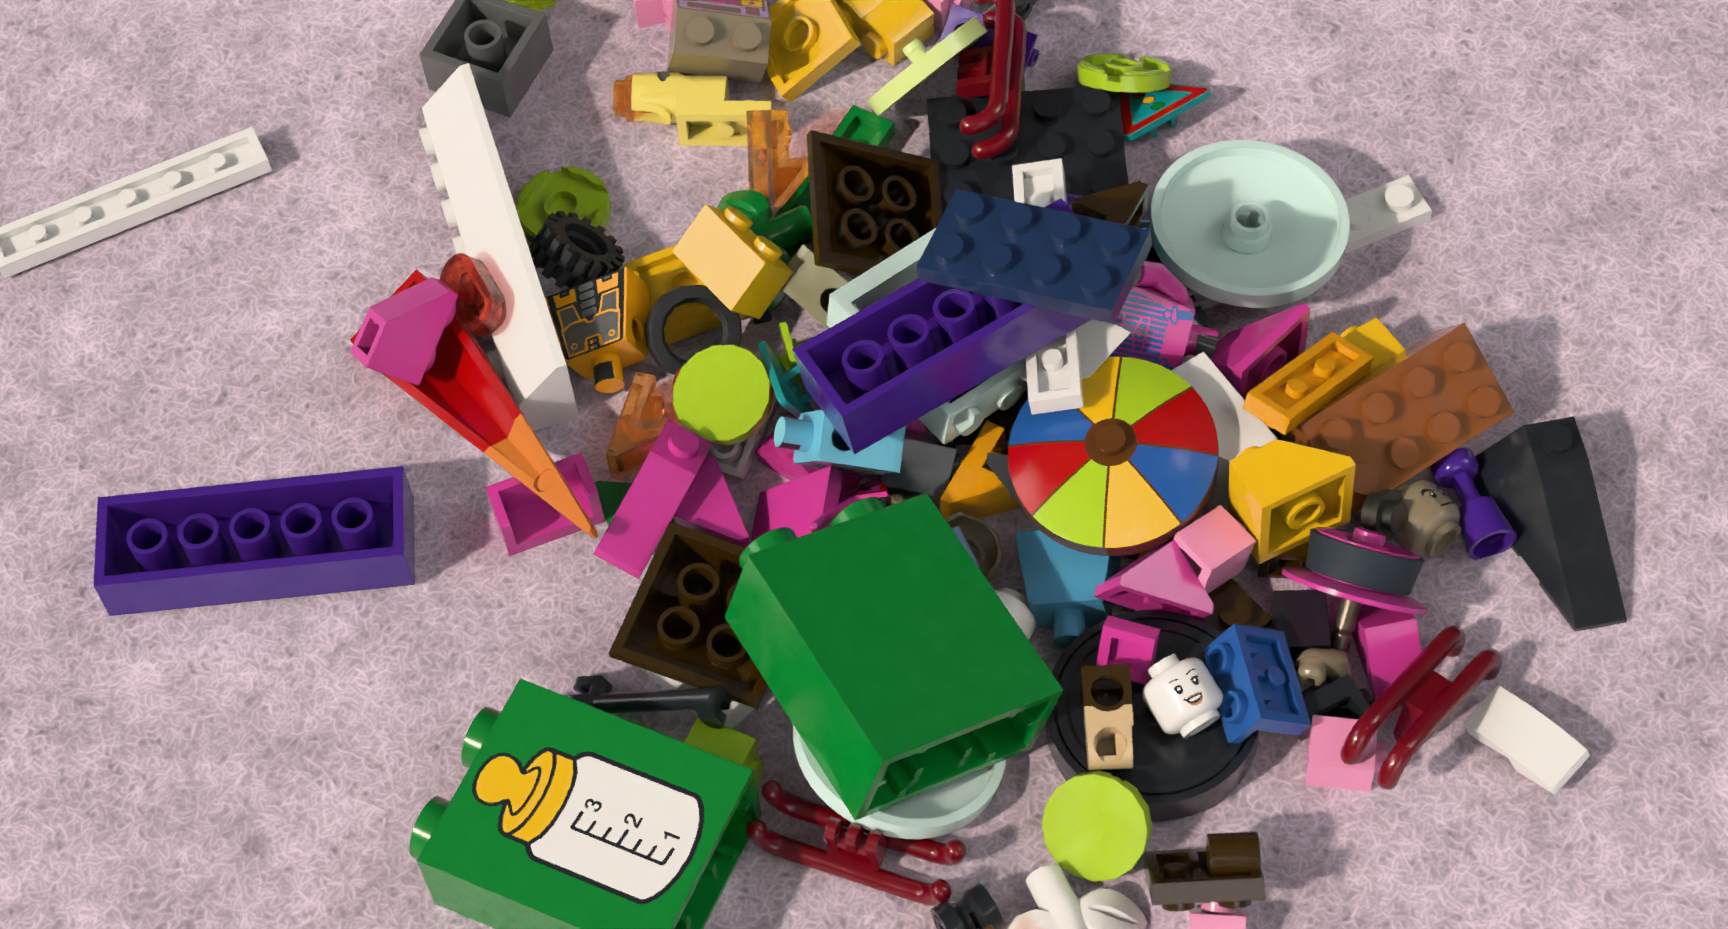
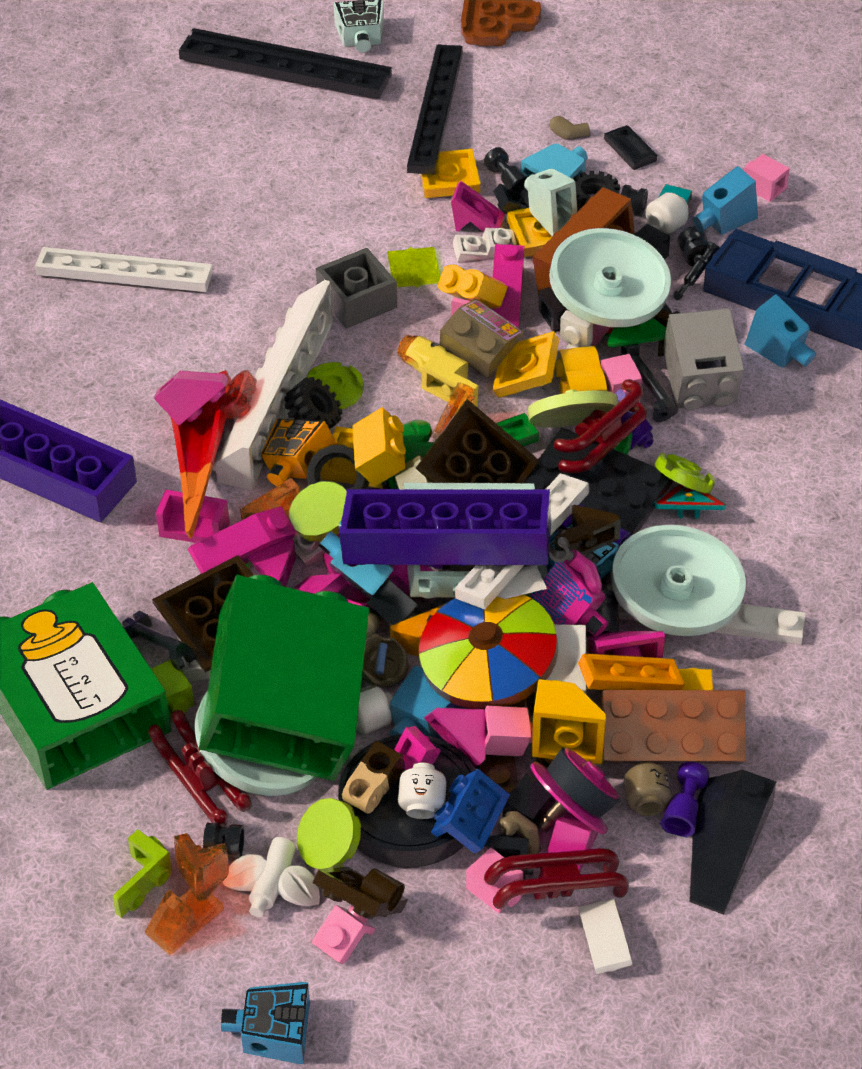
camera: 30 degrees right, 10 degrees down
(1035, 255) = (506, 508): dark blue plate -> none
(1384, 513) = (620, 769): pearl dark grey plate -> none

